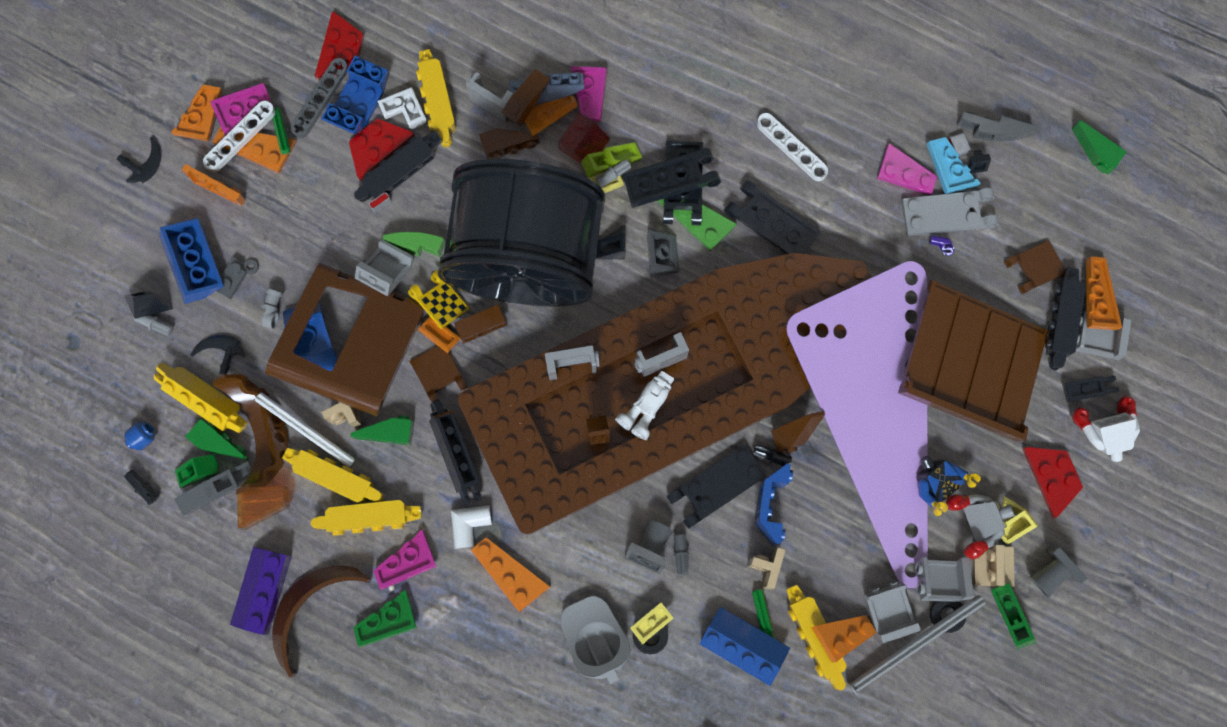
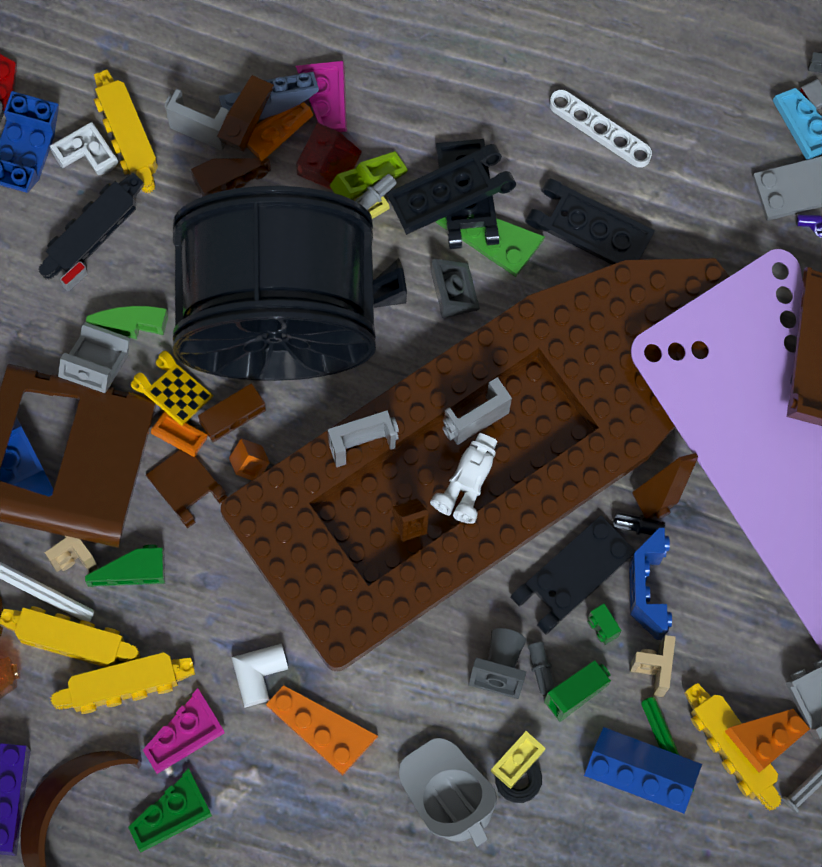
camera: 10 degrees left, 5 degrees down
(376, 144) = (56, 202): red wing -> none
(454, 452) = (225, 581): black hinge -> none
(487, 362) = (249, 459): none -> orange panel
(706, 576) = (577, 690): none -> green slope
(733, 528) = (604, 624): none -> green piece
(905, 172) = (752, 140): dark pink wing -> none

